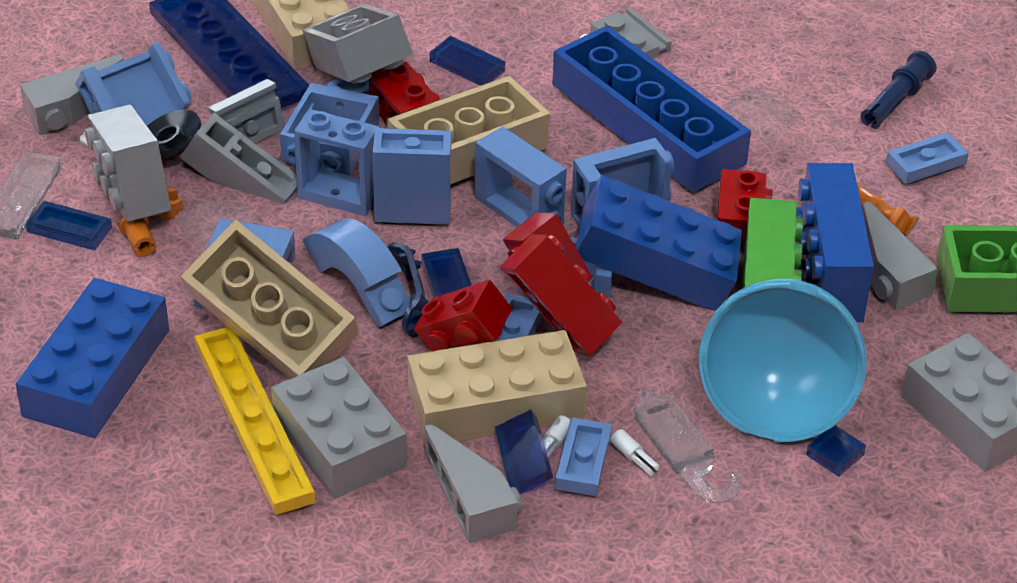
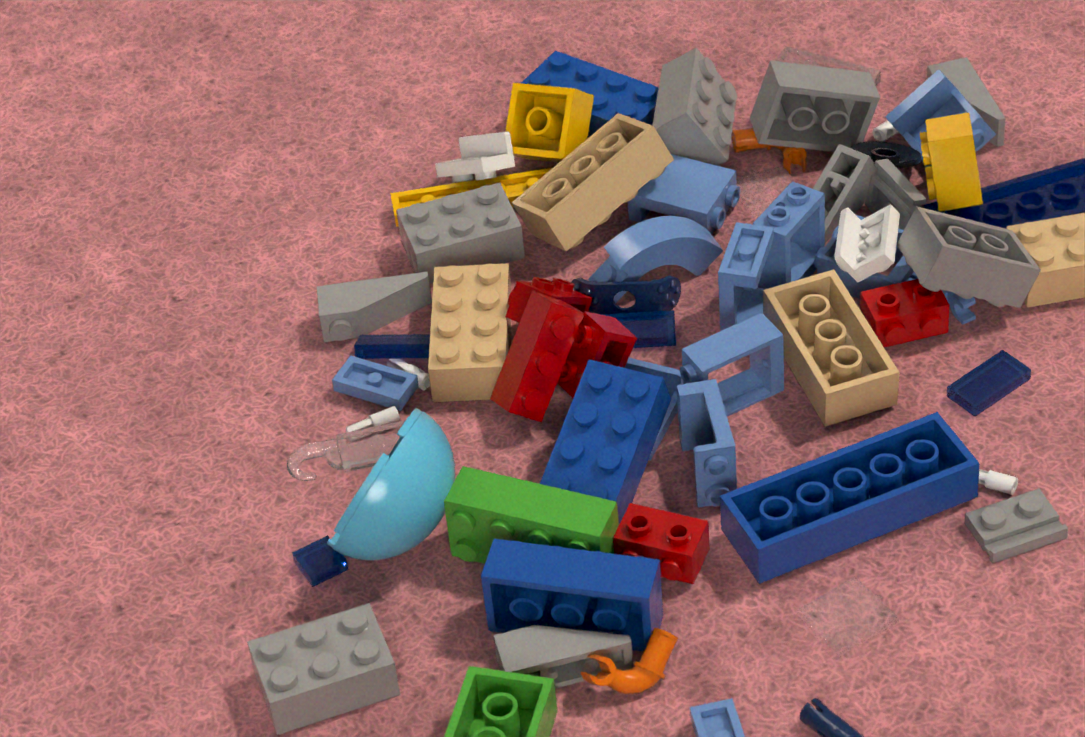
camera: 110 degrees right, 0 degrees up
(128, 251) = (695, 109): none -> light grey brick
(164, 362) = (547, 121): none -> yellow brick
(214, 60) = (953, 162): none -> yellow brick
(216, 425) = (479, 156): none -> white bracket
(346, 96) = (868, 243): none -> white bracket

